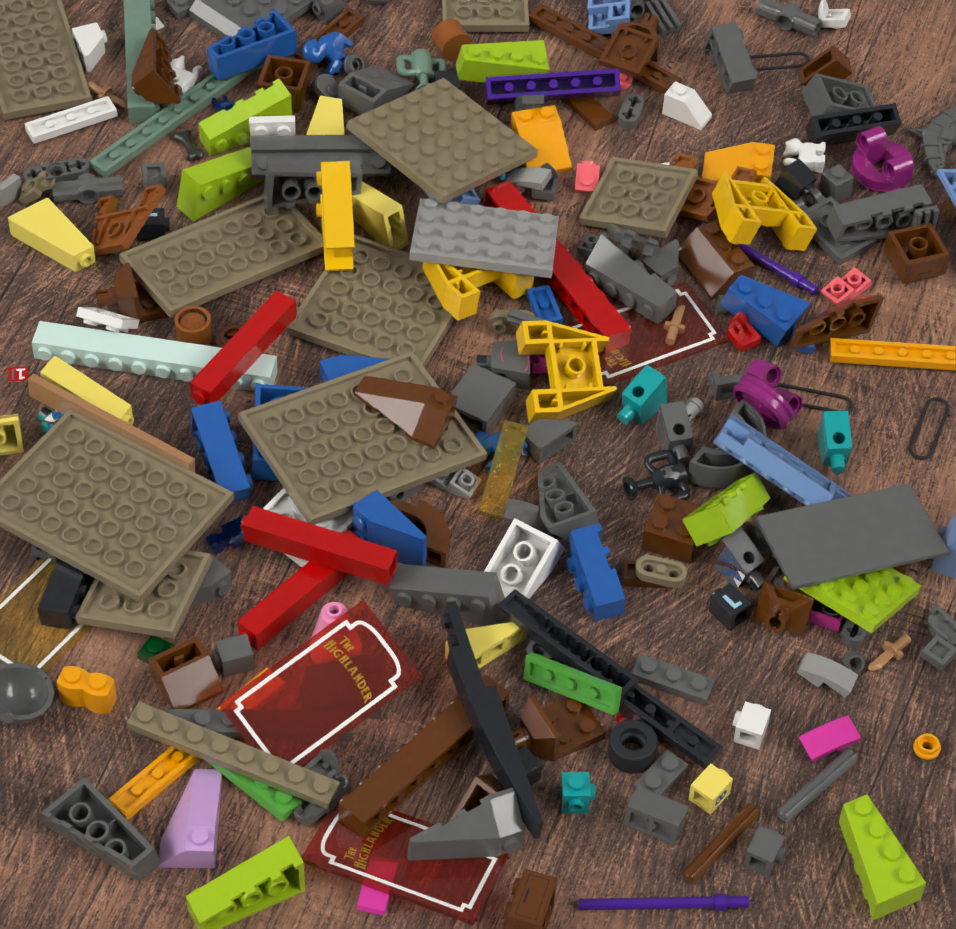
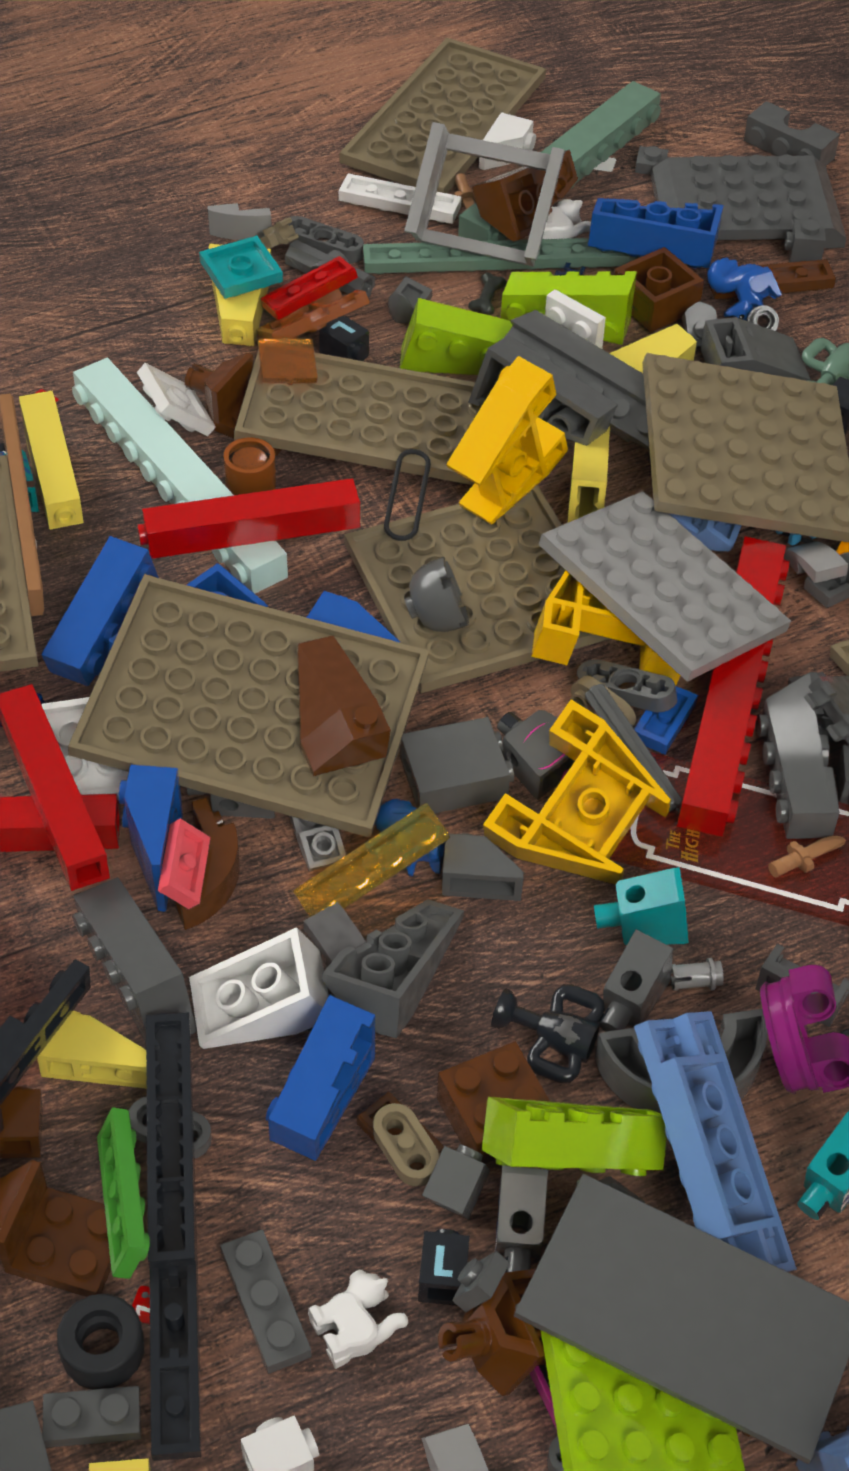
camera: 45 degrees right, 0 degrees up
(52, 218) = (241, 267): none -> teal plate
(99, 205) = (308, 288): none -> red tile
(148, 253) = (287, 361): none -> clear orange piece
(186, 66) = (428, 180): none -> light grey piece
(289, 289) = (421, 497): none -> black piece
(384, 323) = (436, 597): none -> dark grey cylinder
(436, 538) = (184, 864): none -> coral plate
(502, 300) = (650, 692): none -> dark grey beam
(699, 568) = (457, 1180): none -> dark grey brick
(717, 655) = (349, 1318): none -> white animal
(759, 592) = (479, 1280): none -> dark grey plate

